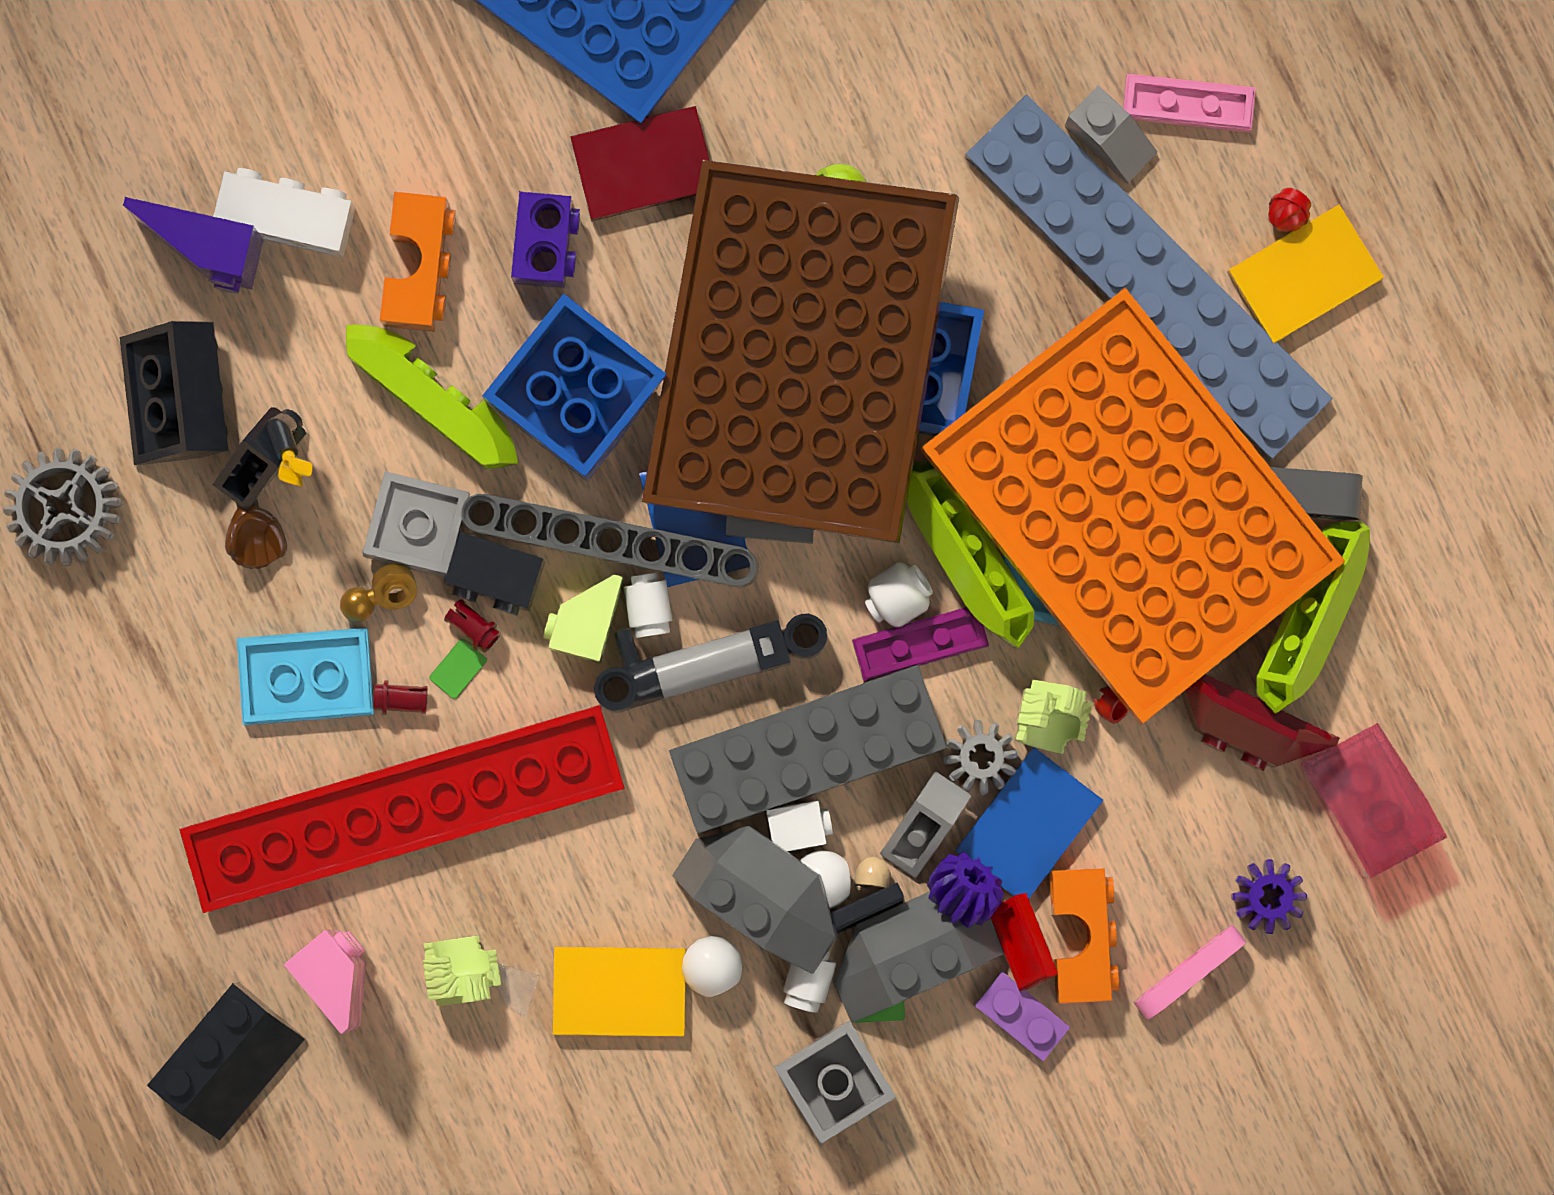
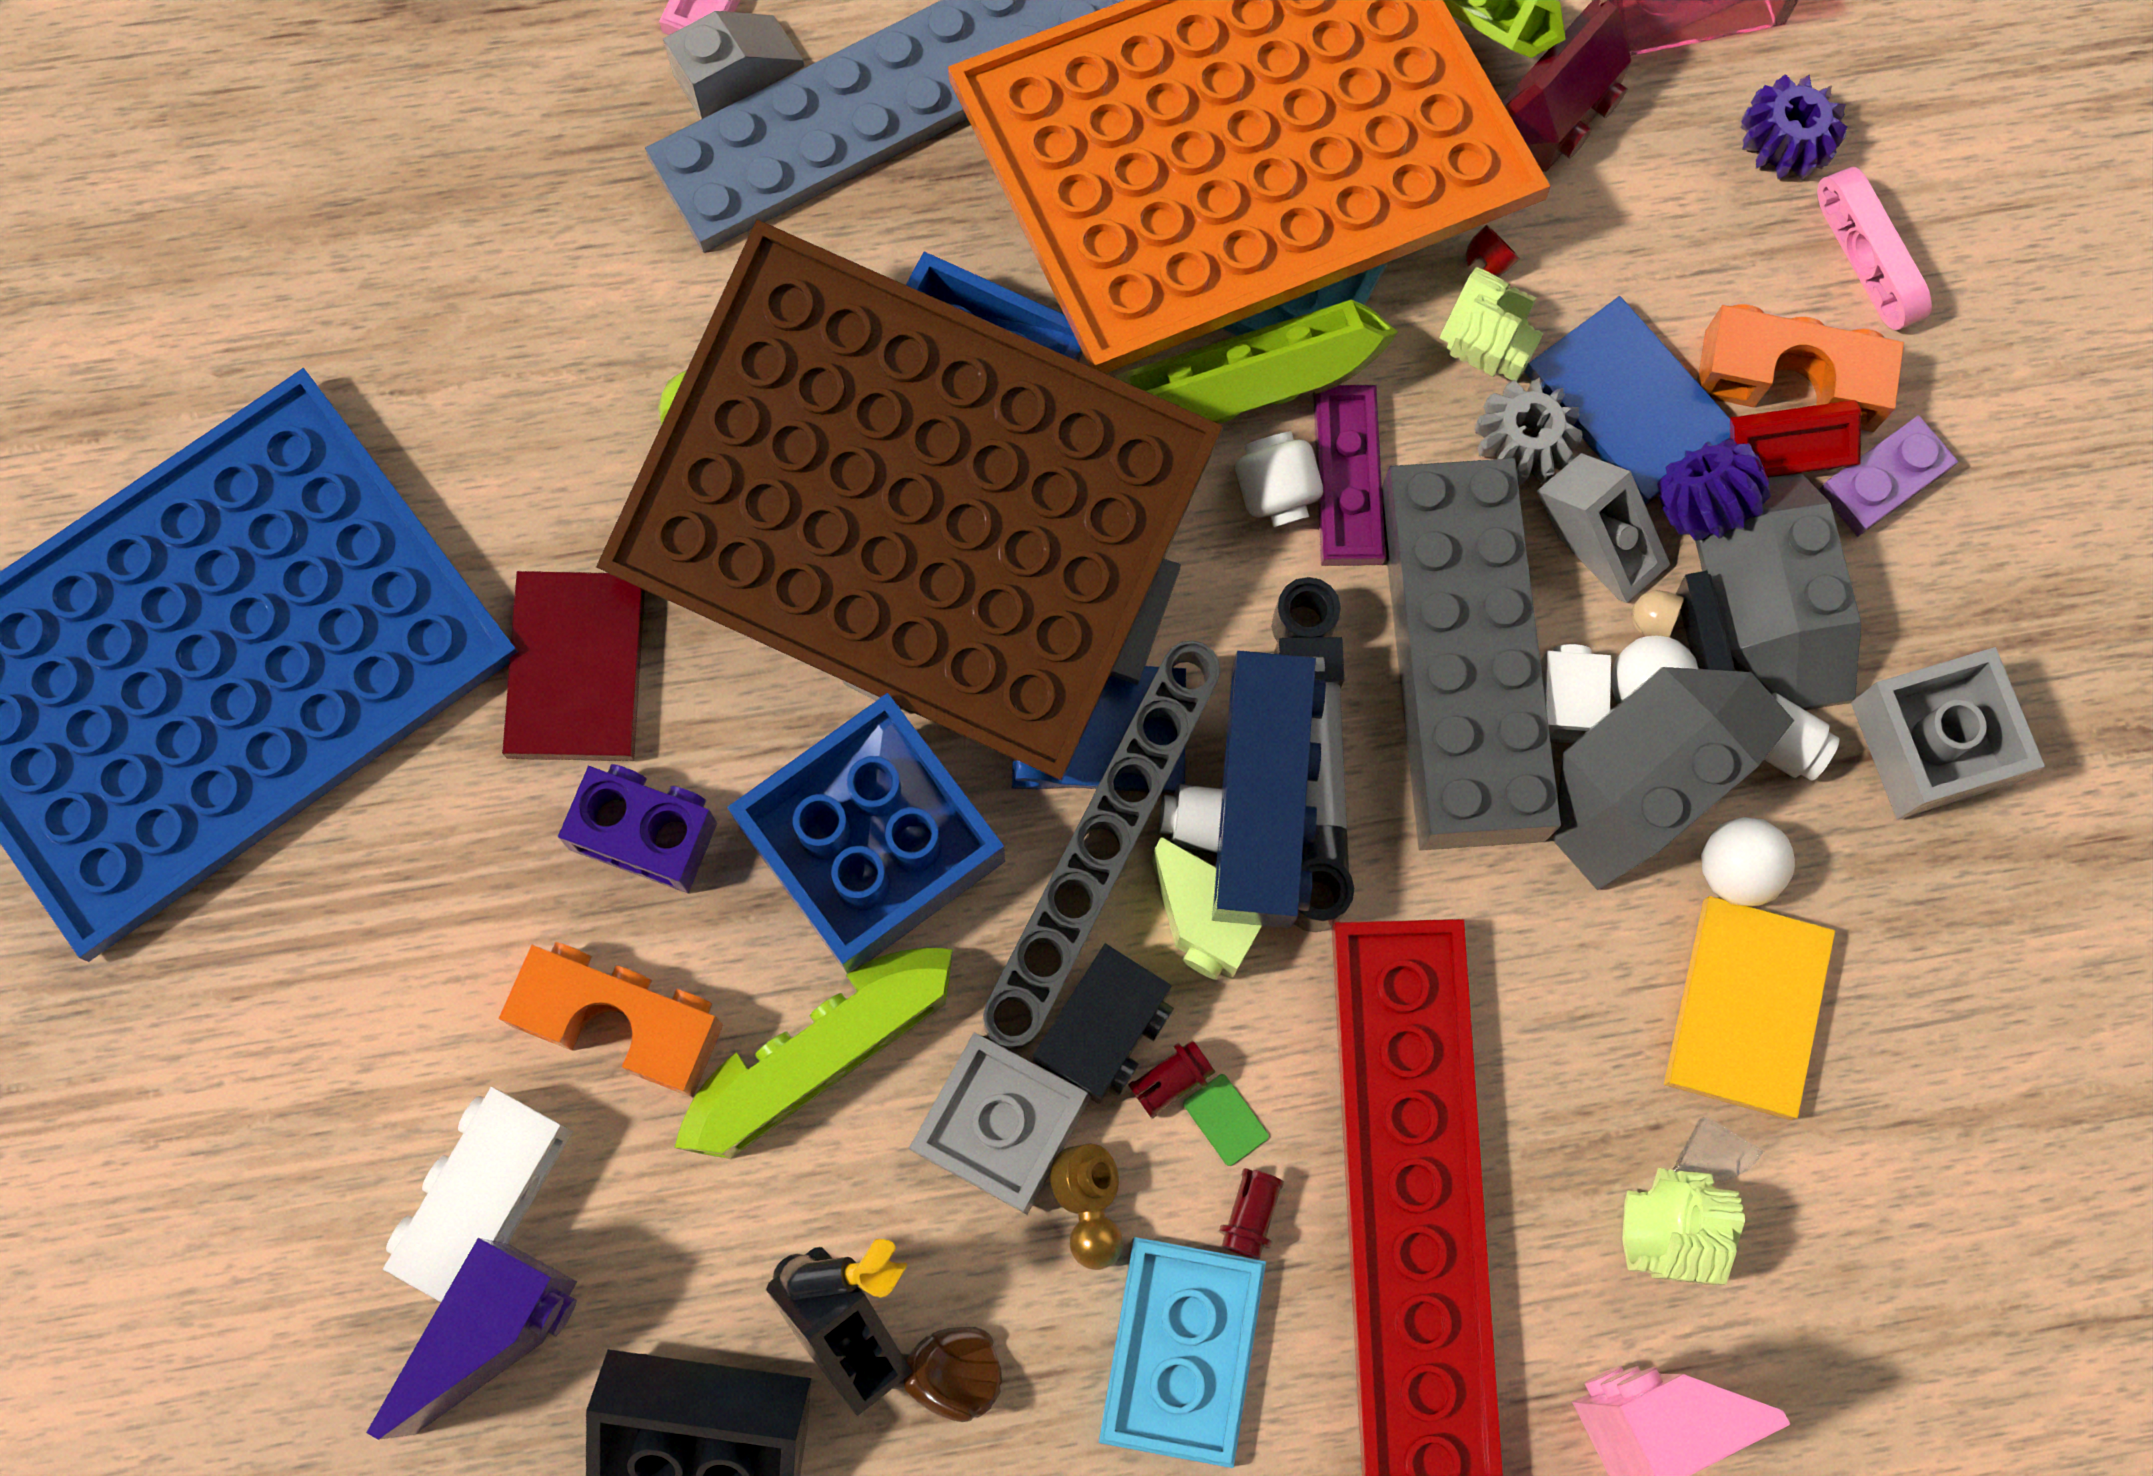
camera: 75 degrees left, 10 degrees down
(666, 634) = (1266, 789): none -> dark blue brick

